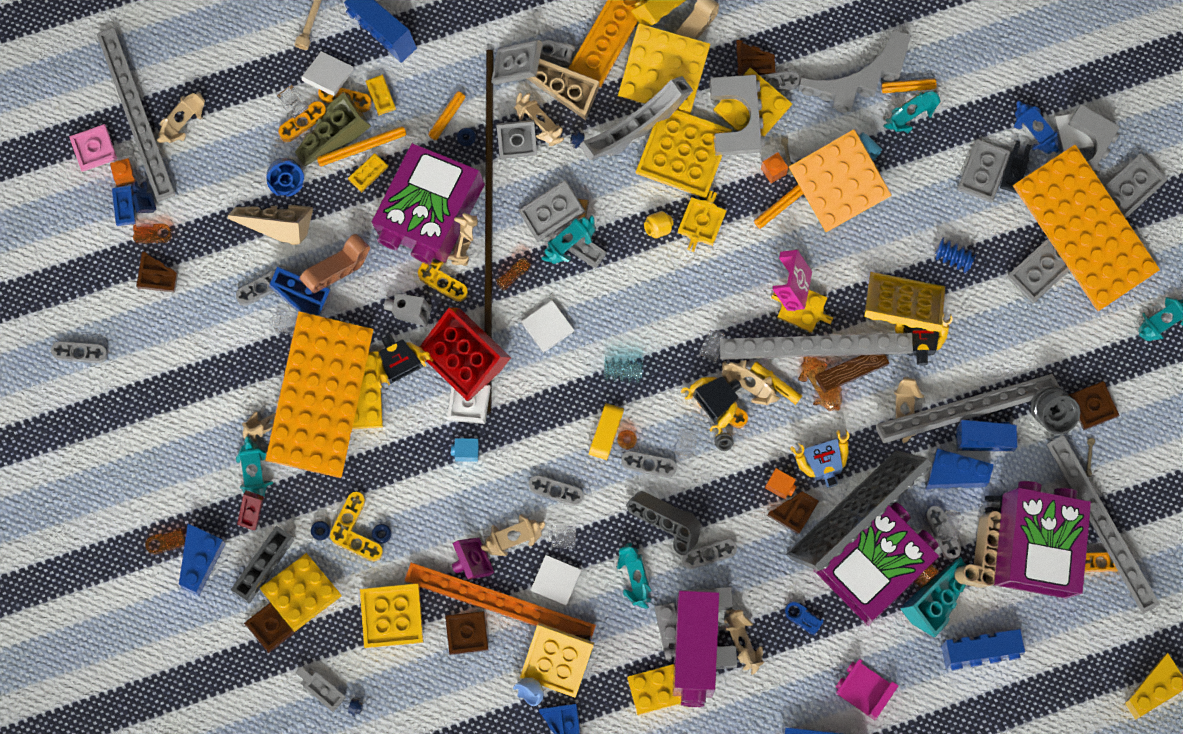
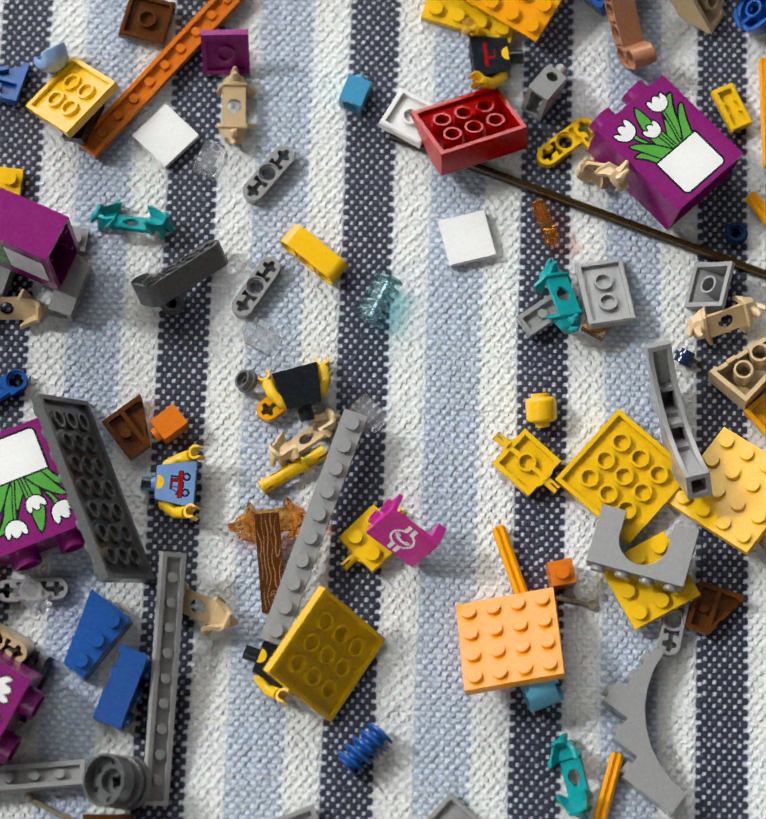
camera: 110 degrees right, 0 degrees up
(627, 433) = (295, 267): clear orange plate -> none
(694, 553) = (127, 331): light grey beam -> none

